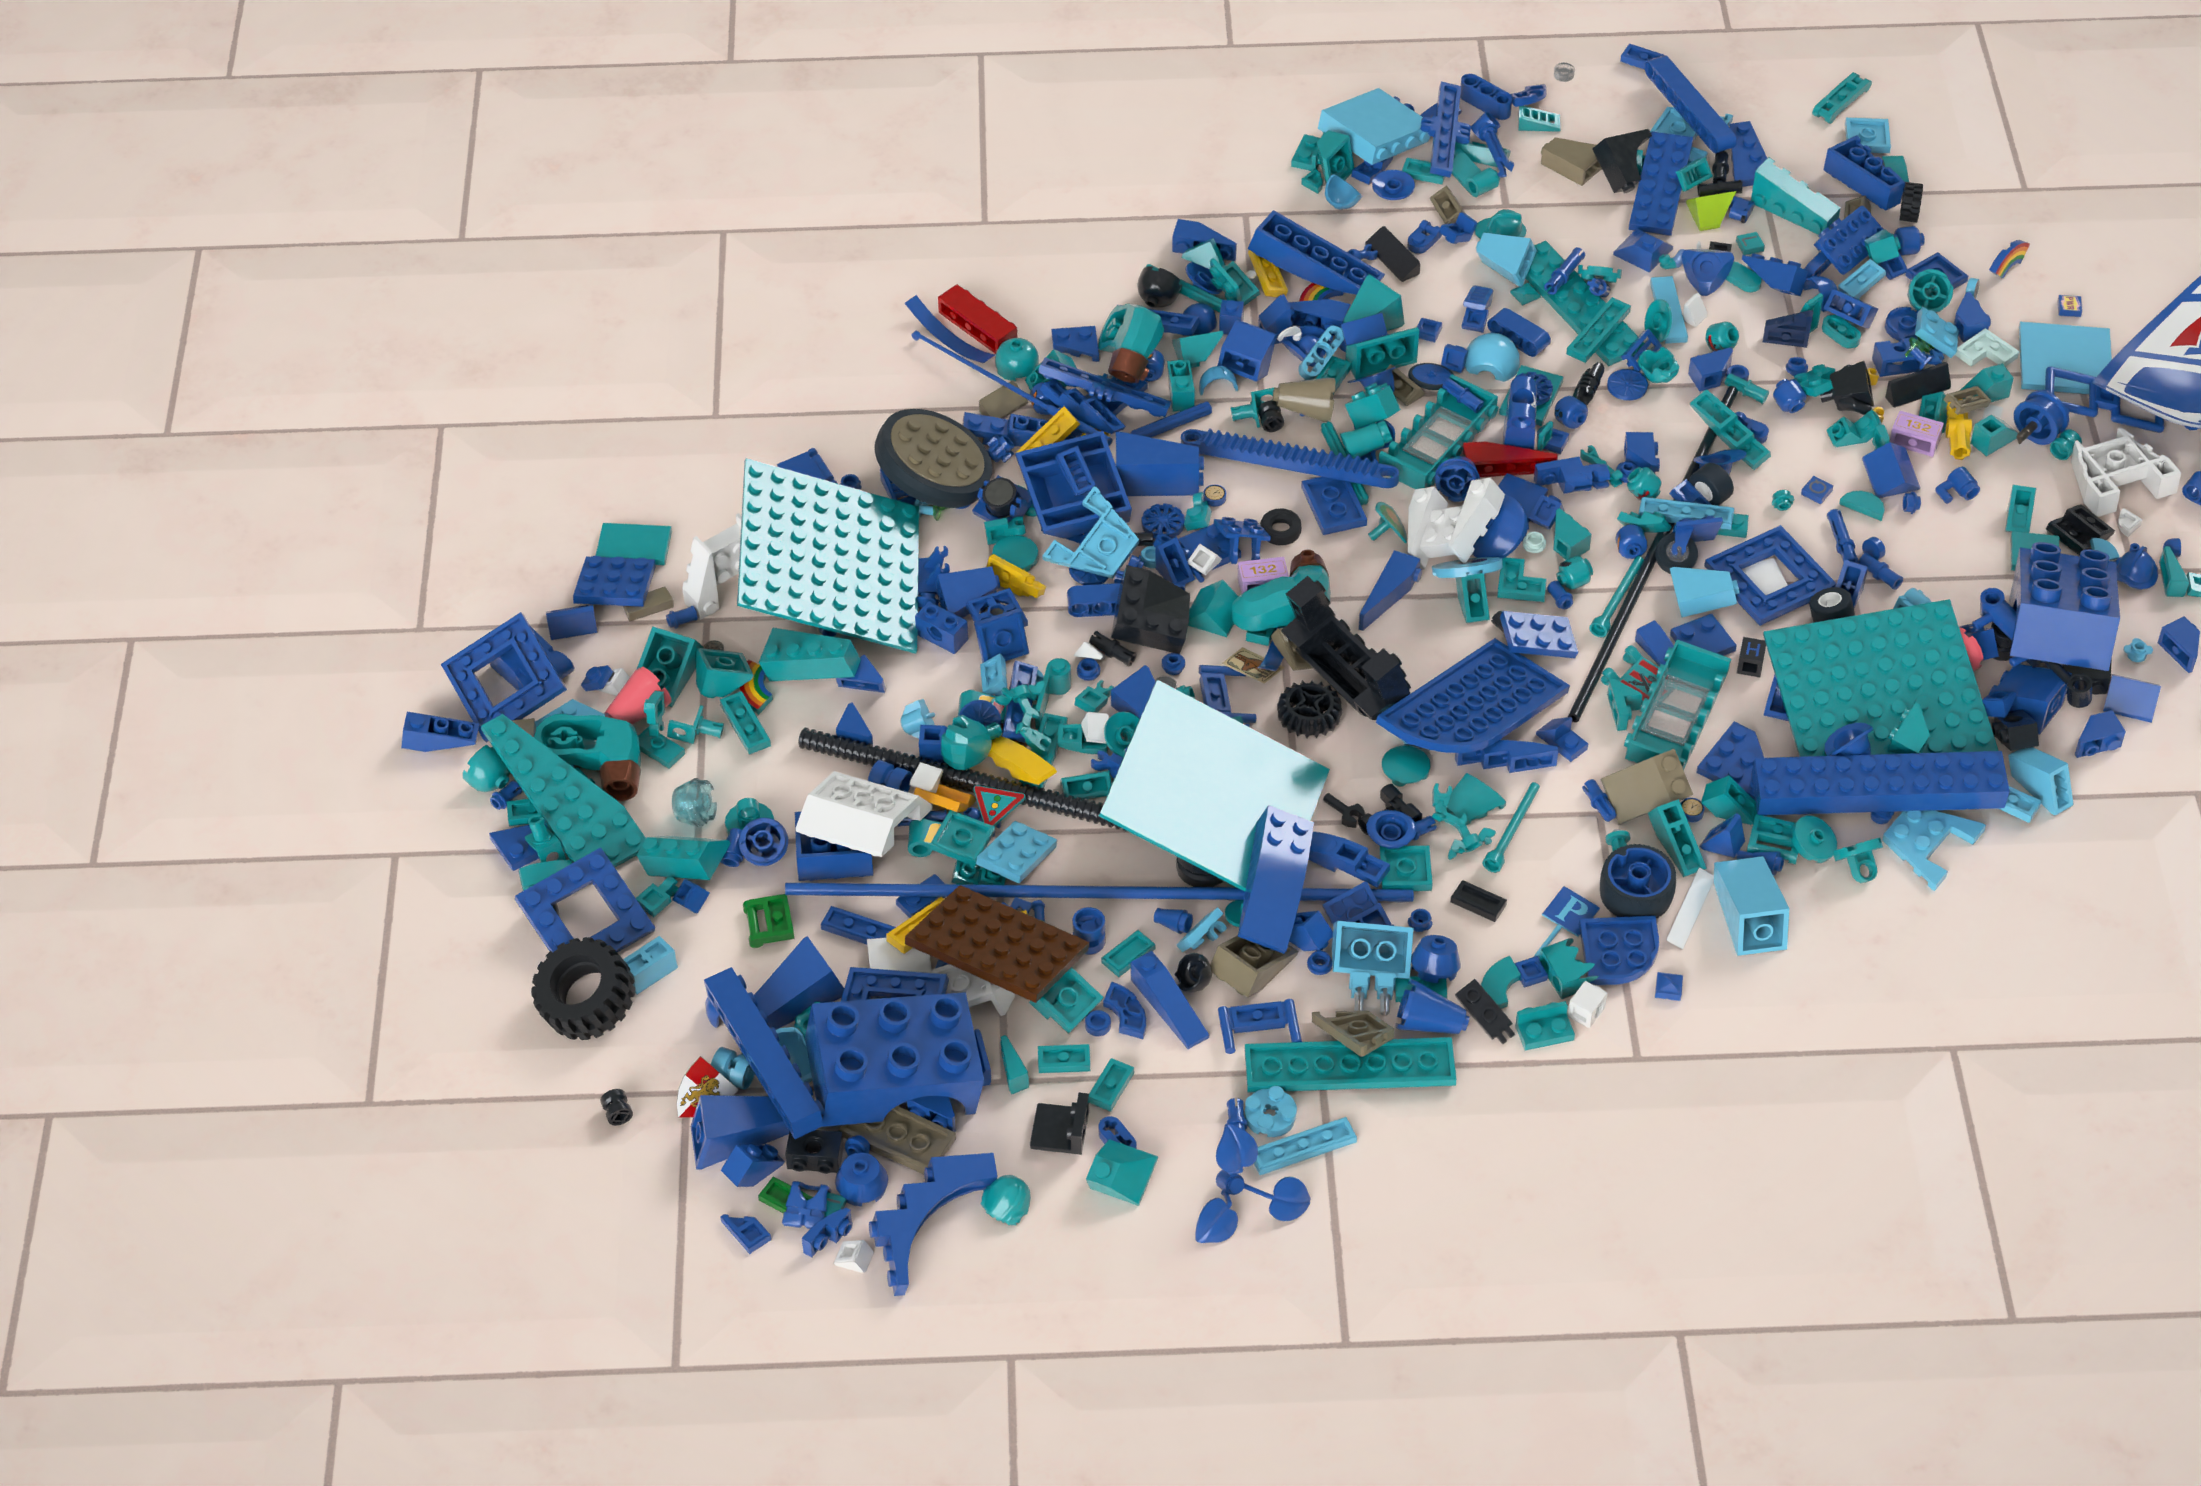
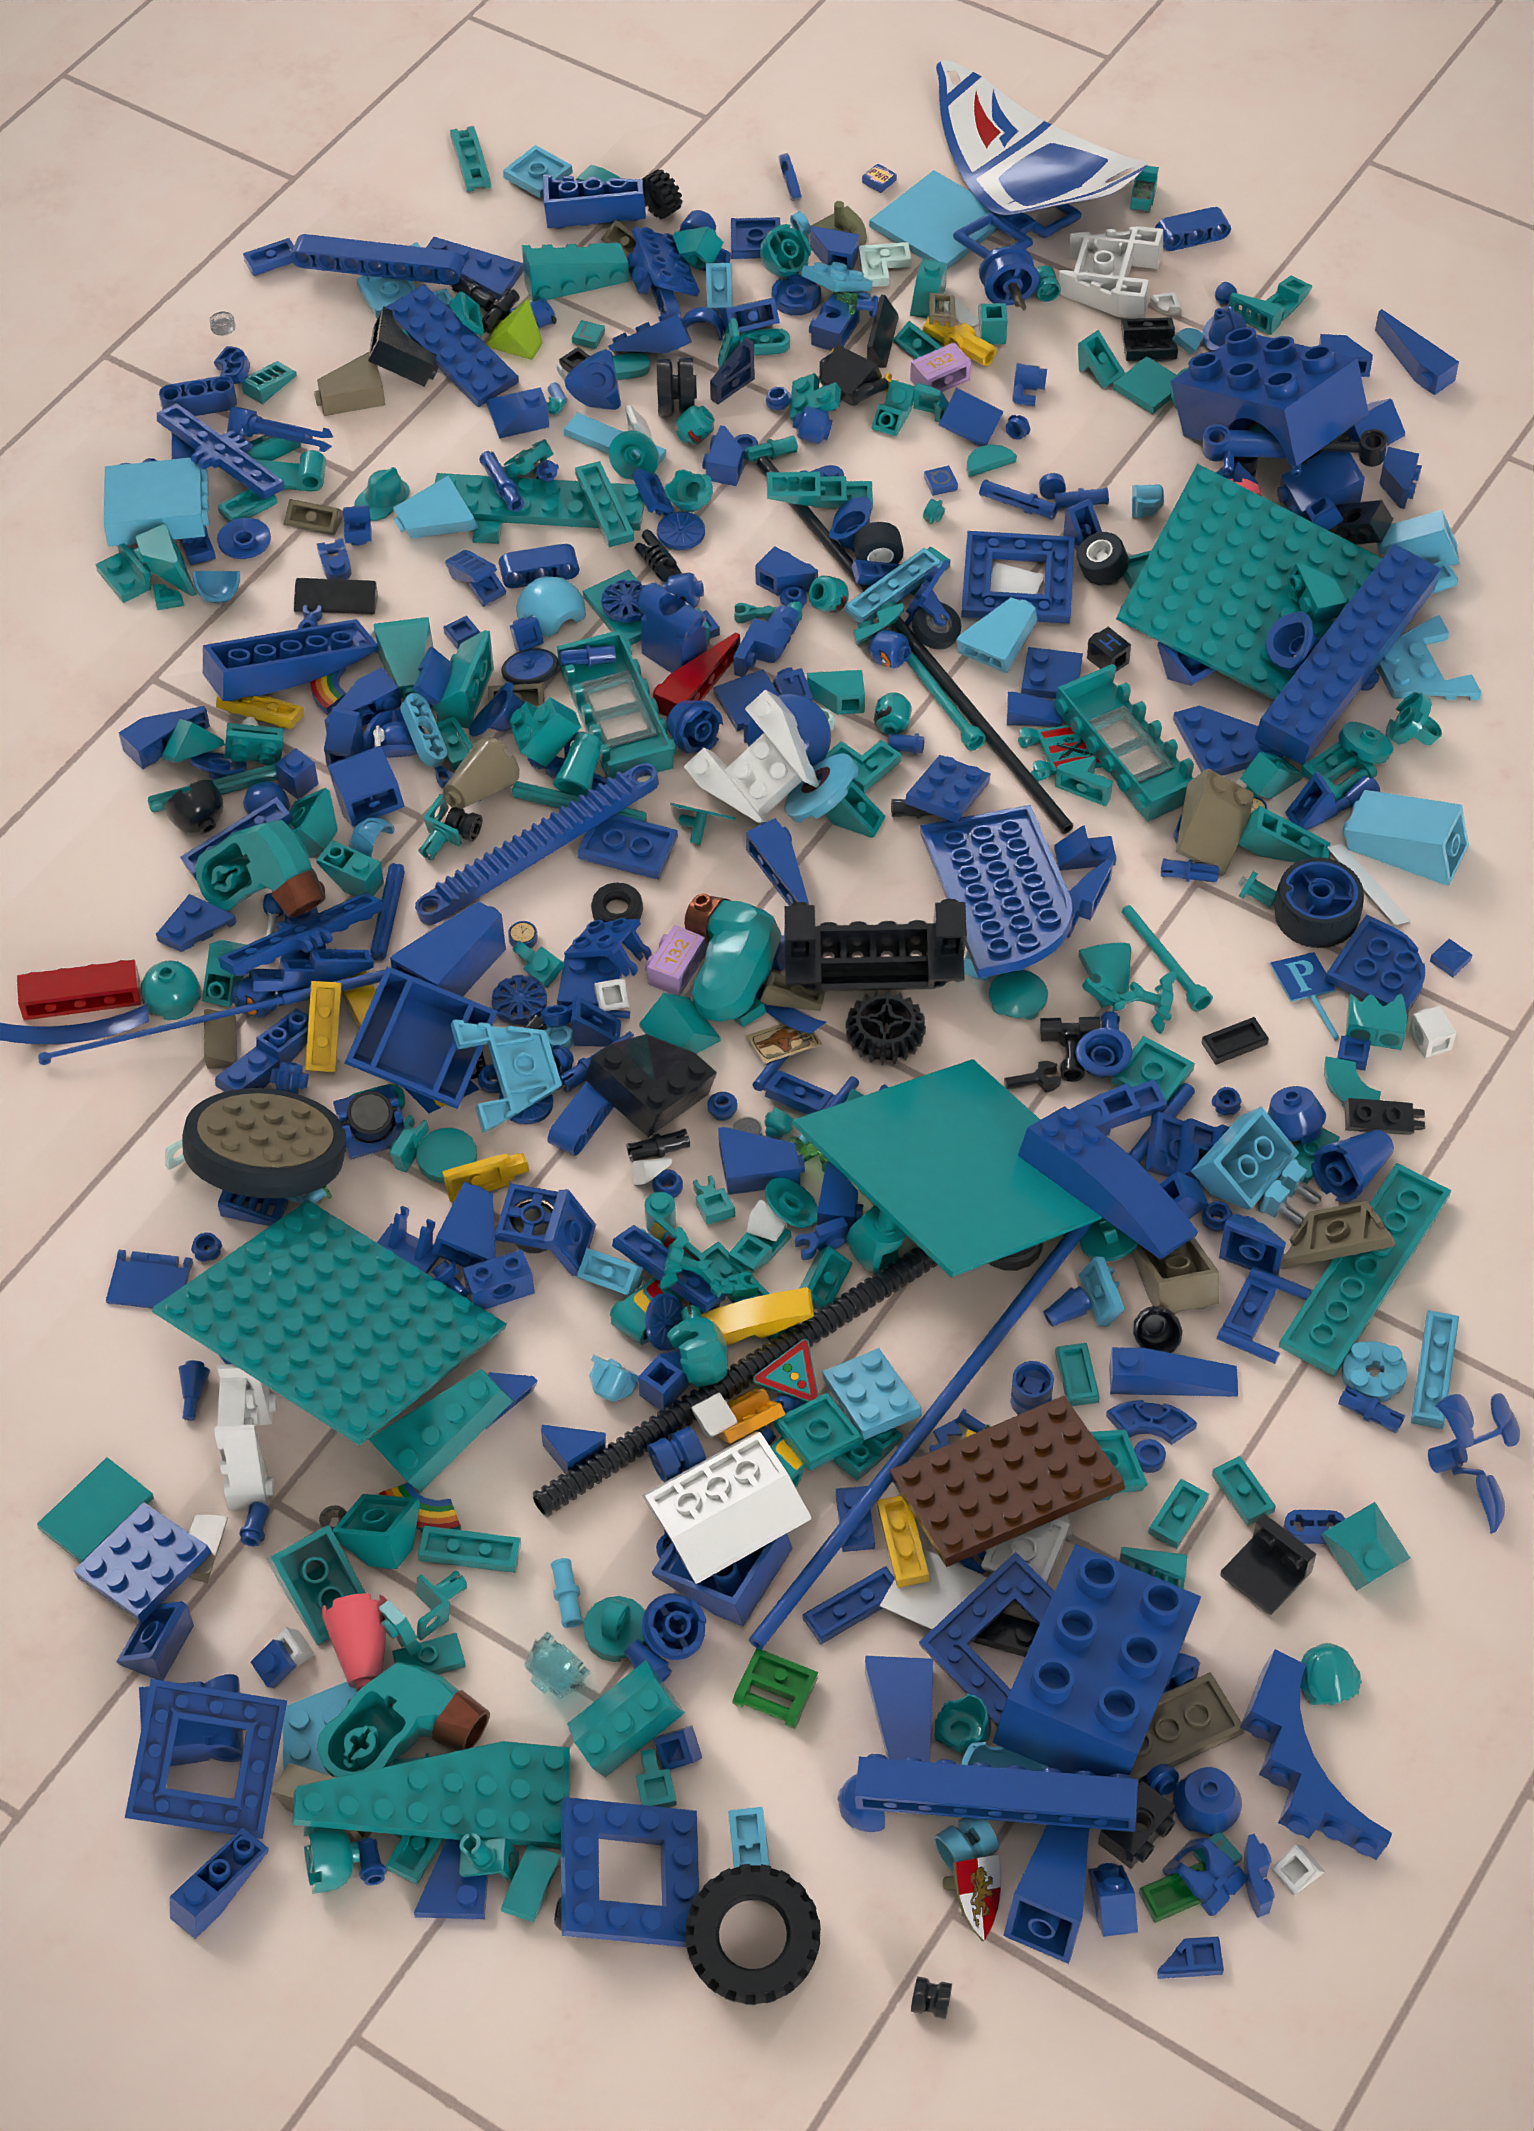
camera: 55 degrees left, 5 degrees up
(753, 783) = (566, 1593): none -> medium azure pin
(1079, 460) = (414, 1032): blue slope -> none
(1308, 986) = (1251, 1243): none -> blue slope
(1544, 1025) = (1432, 1082): teal bracket -> none
(1740, 305) = (675, 387): none -> black wheel
(2002, 314) = (844, 220): none -> olive shield

